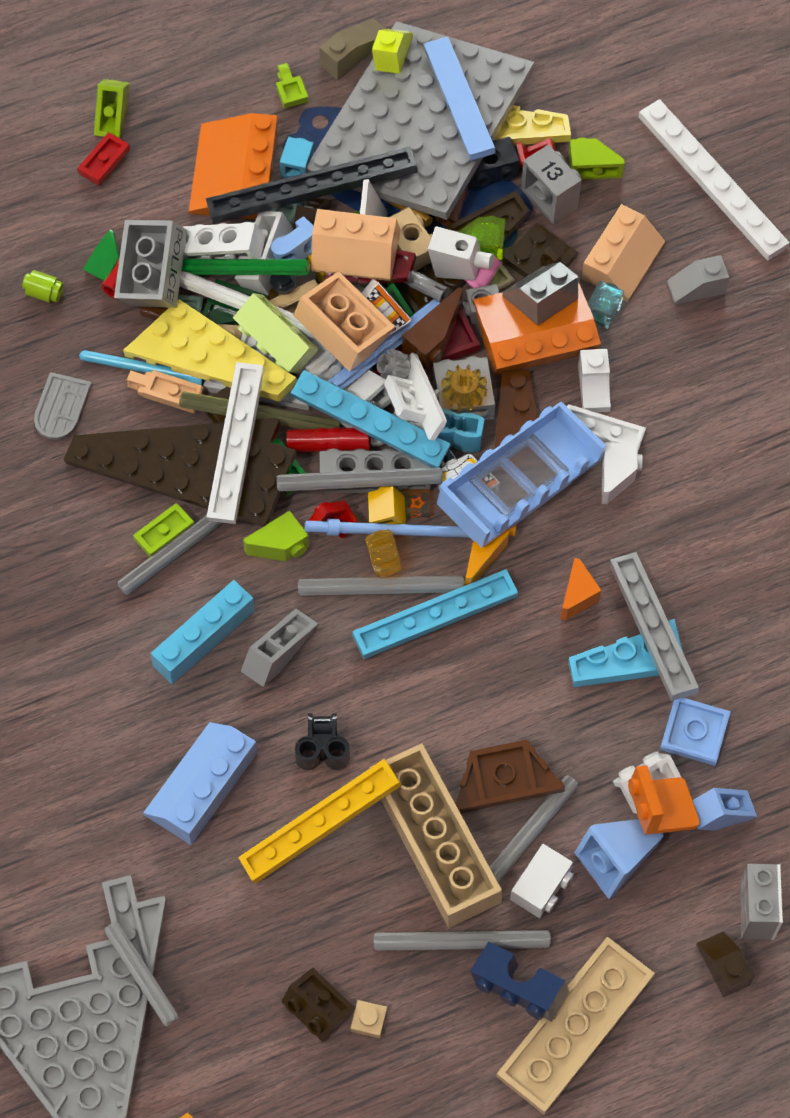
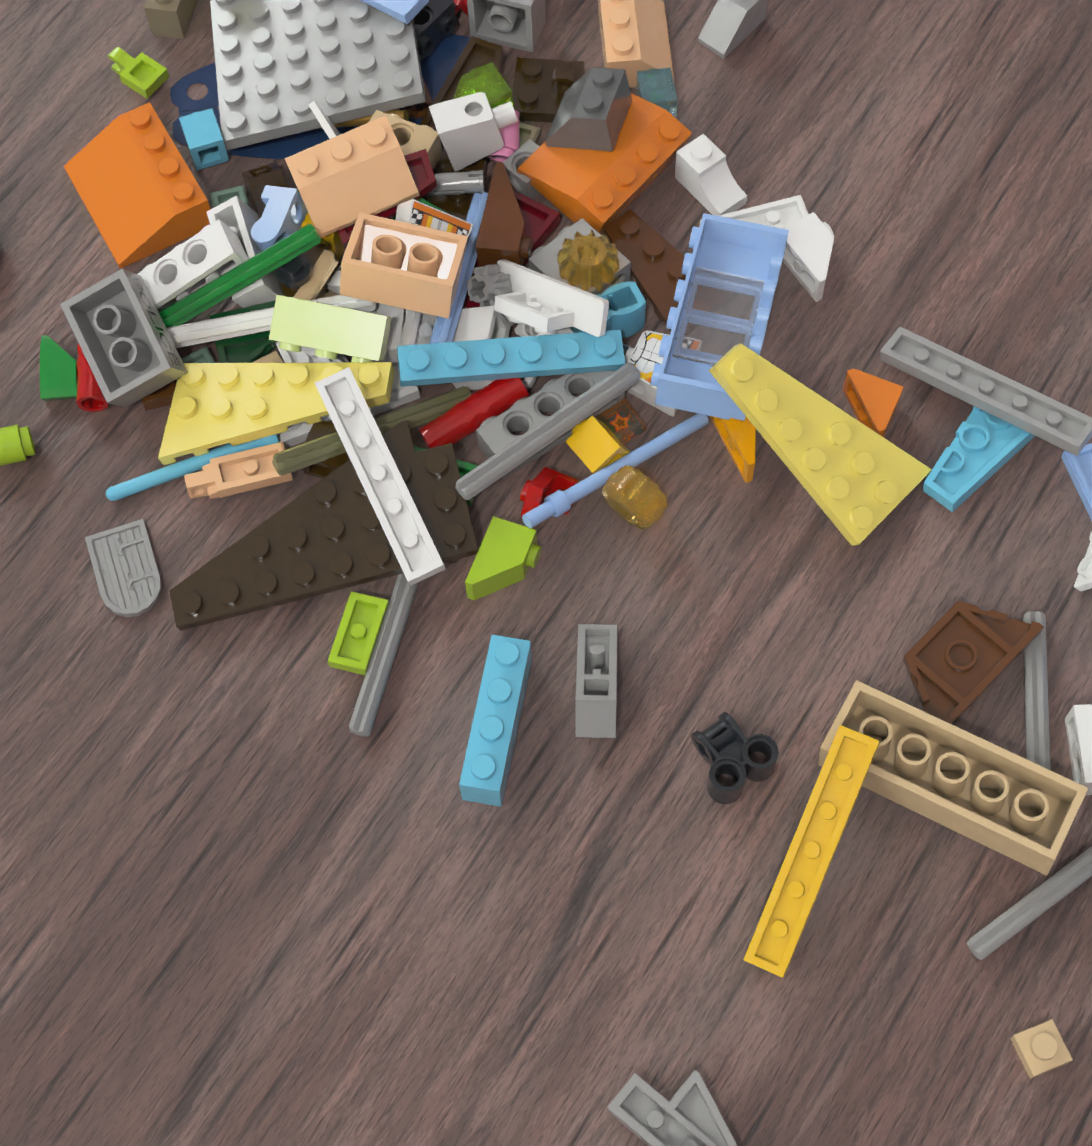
camera: 30 degrees left, 0 degrees up
(202, 781) = (626, 898): light blue slope -> none
(311, 185) = (247, 150): black plate -> none
(317, 1004) = (974, 1074): dark brown bracket -> none
(379, 585) = (653, 537): light grey axle -> none
(434, 614) = (732, 542): medium azure plate -> none
(520, 606) = (835, 457): none -> light yellow wing

